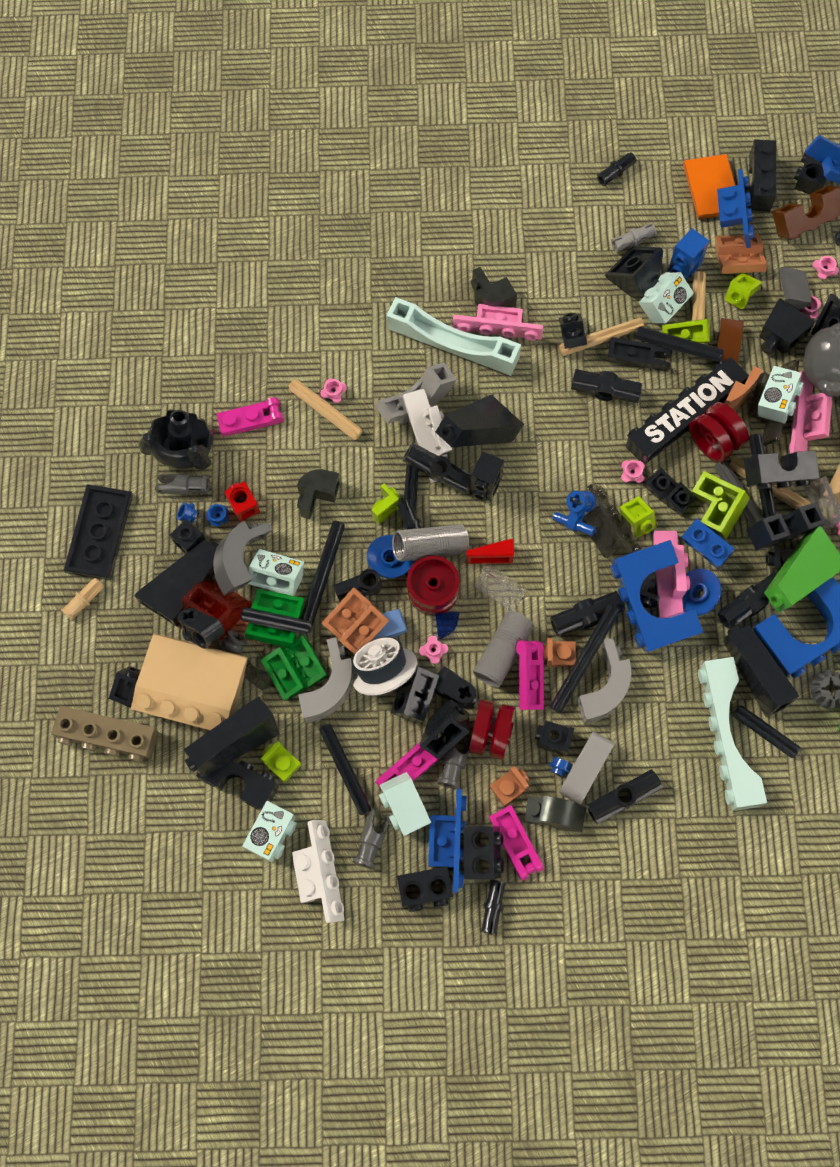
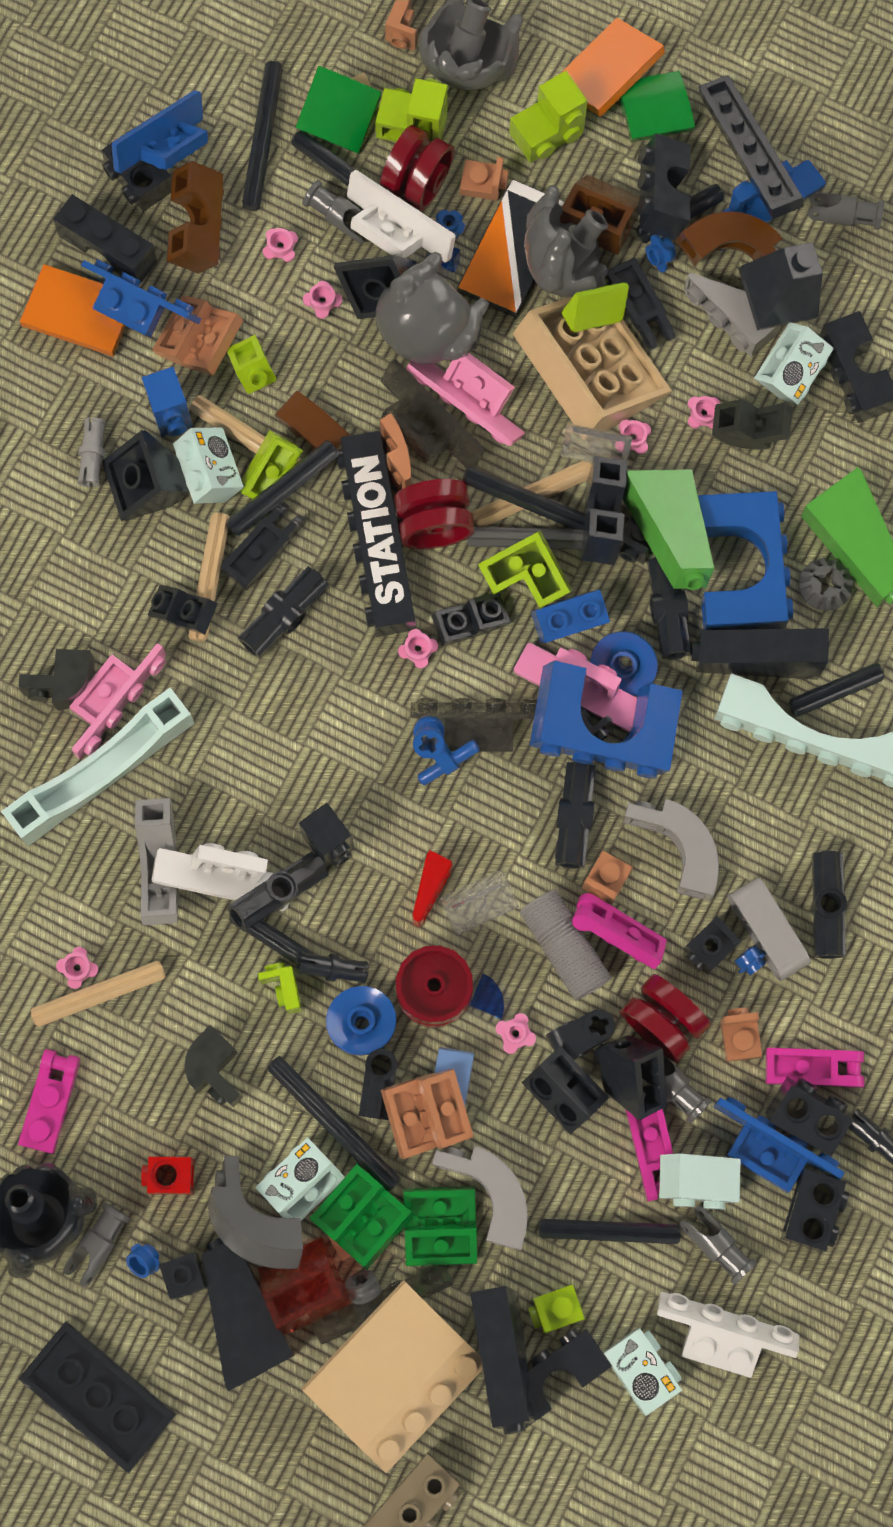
camera: 65 degrees left, 5 degrees up
(82, 598) = (185, 1465): tan axle -> none
(124, 686) = (344, 1463): black bracket -> none
(200, 627) = (331, 1323): black piece -> none
(217, 509) = (159, 1216): blue plate -> none
(276, 621) = (370, 1217): black axle -> none
(382, 666) = (511, 1111): white piece -> none
(431, 541) = (377, 958): light grey piece -> none
(479, 424) = (252, 803): black slope -> none
(555, 812) = (806, 1000): pearl dark grey brick -> none
(585, 658) = (633, 852): black axle -> none
(639, 516) = (483, 676): lime bracket -> none
(765, 470) = (524, 491): arch -> none
(779, 394) = (430, 411): light aqua brick -> none
(784, 328) = (334, 348): black torso -> none
(795, 287) = (290, 299): dark grey slope -> none

